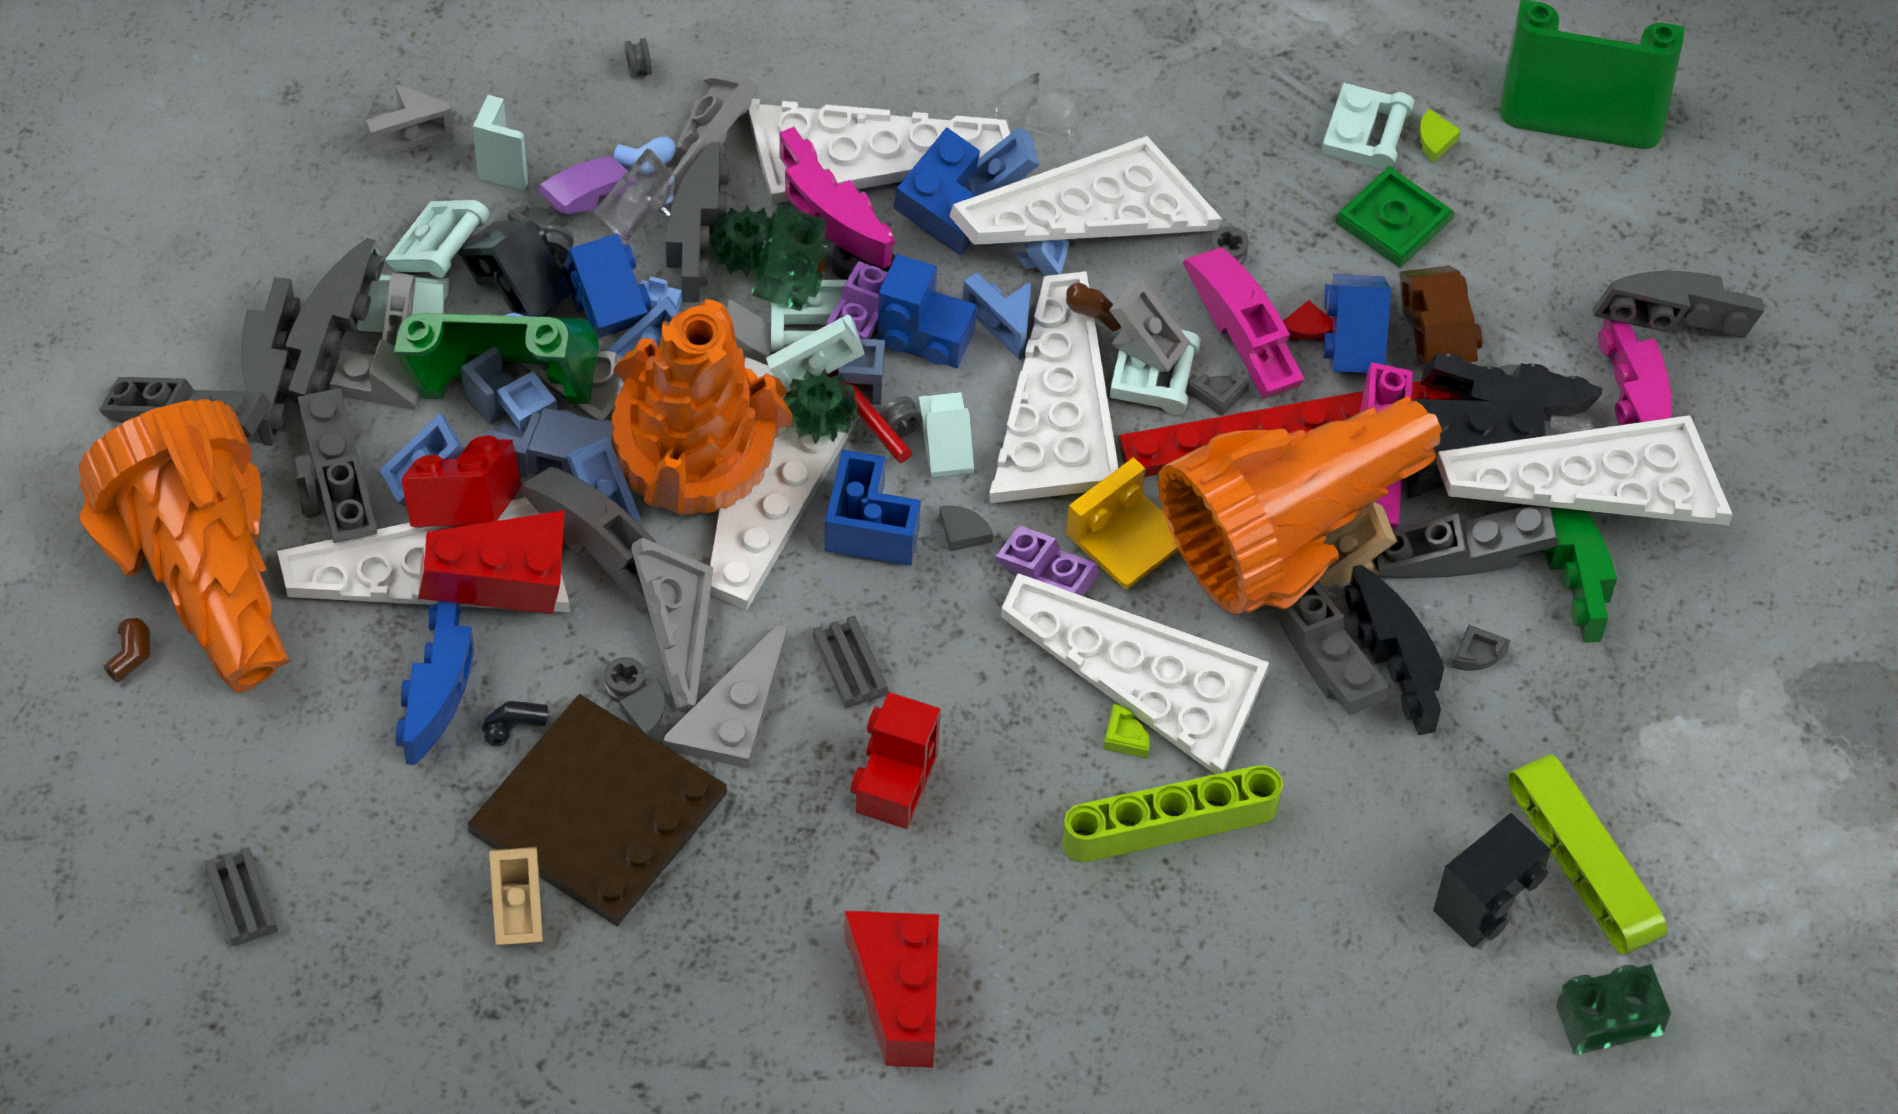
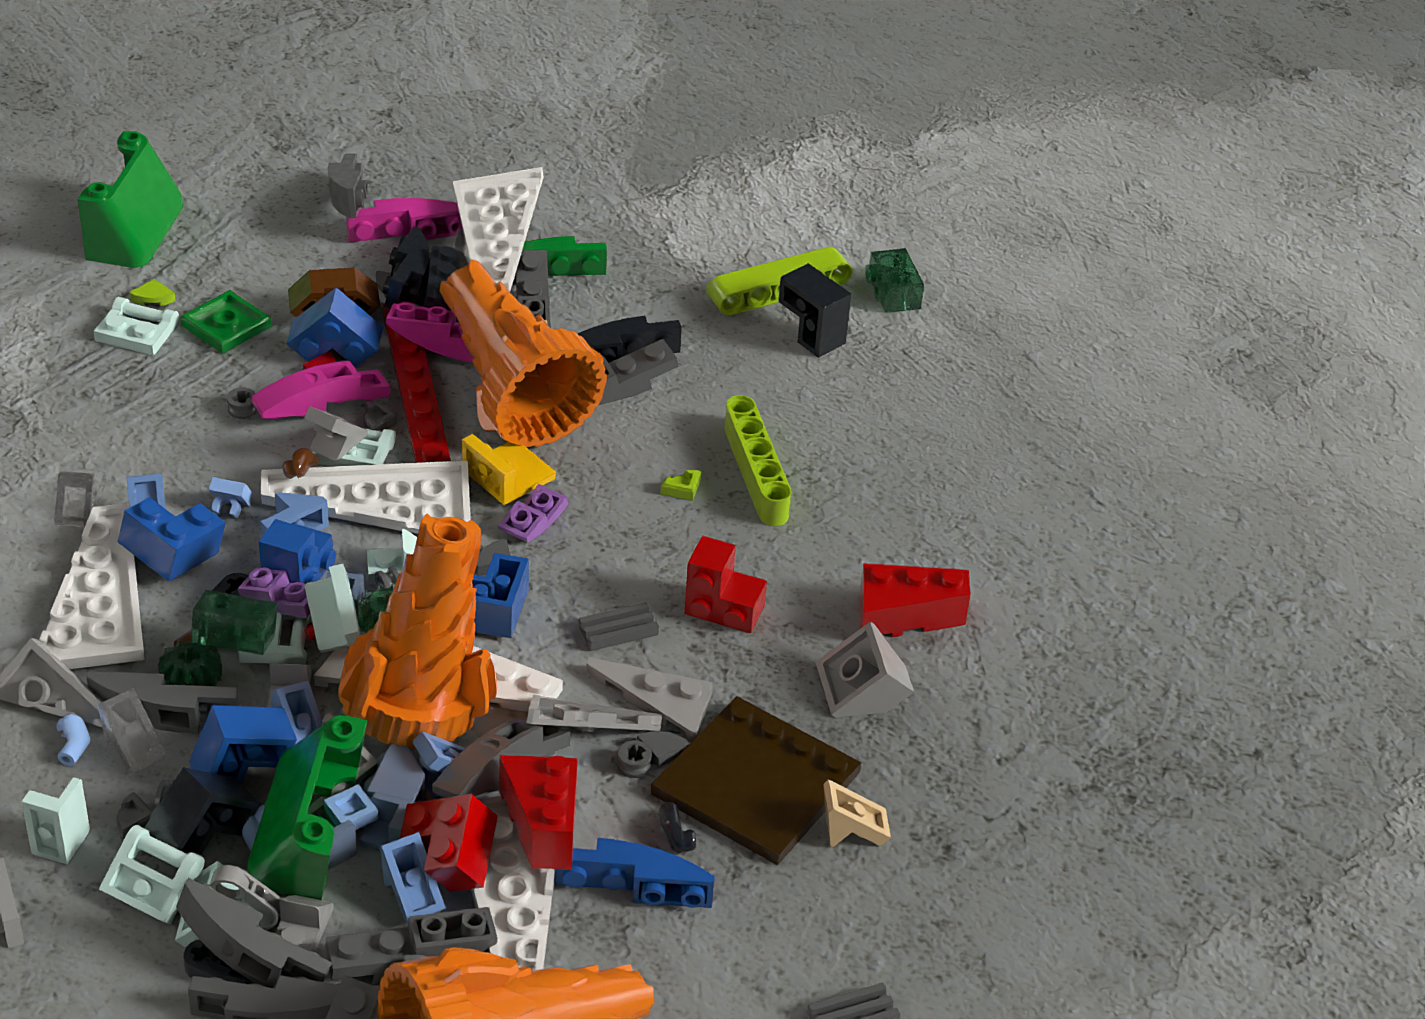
camera: 90 degrees left, 15 degrees down
(582, 184) = (107, 772): medium lavender slope -> none
(758, 925) = (863, 675): none -> light grey slope
(847, 212) = (166, 607): dark pink slope -> none
(1102, 195) = (195, 455): white wing -> none
(1168, 678) = (628, 466): white wing -> none
(1479, 649) = (611, 312): dark grey tile -> none

